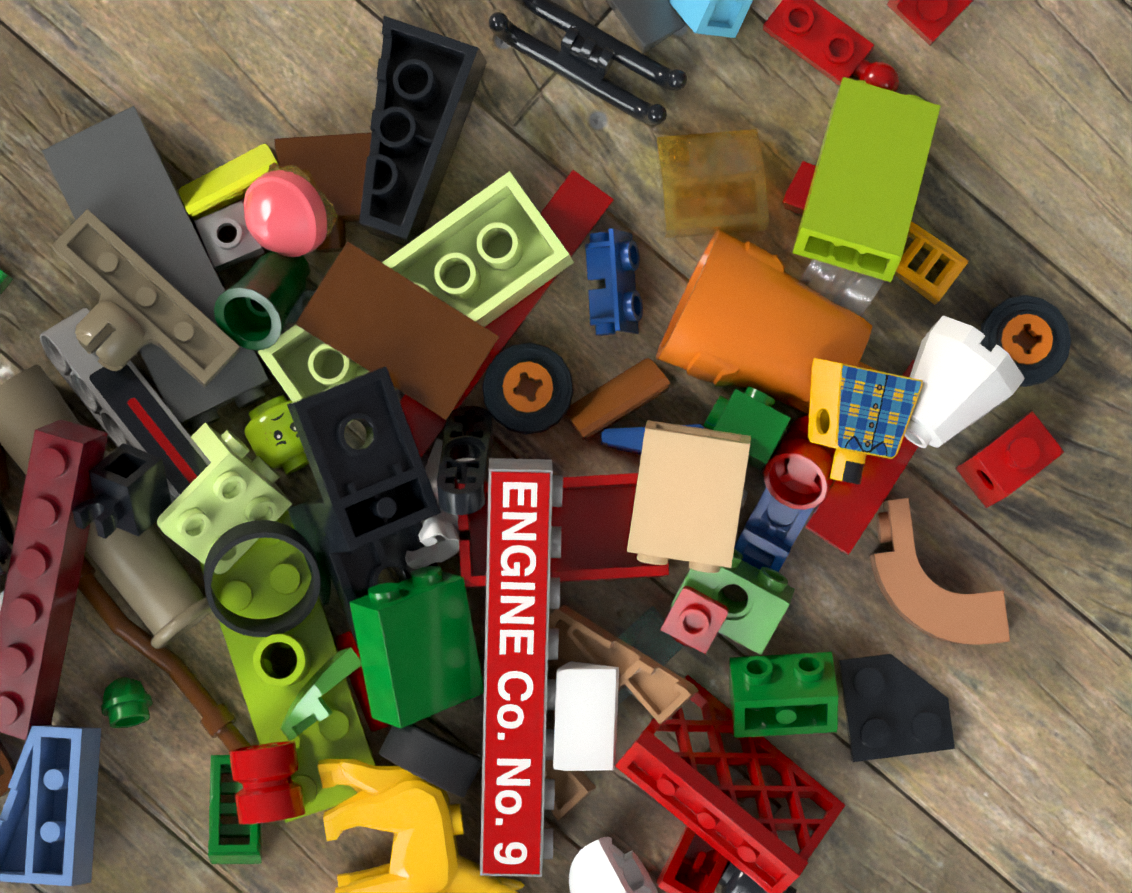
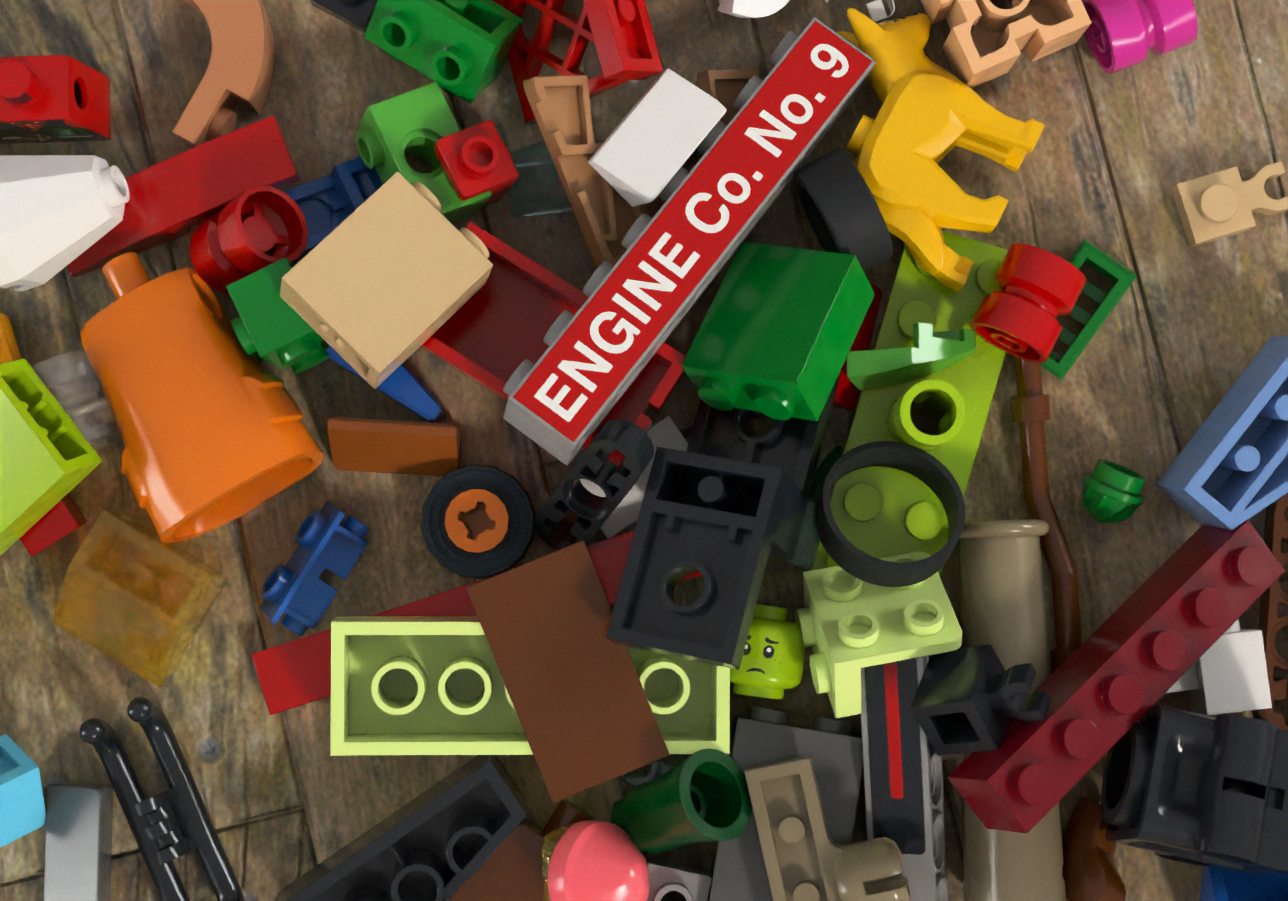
camera: 140 degrees left, 0 degrees up
(434, 552) = (693, 421): white piece -> none
(858, 414) = (154, 242): torso -> none

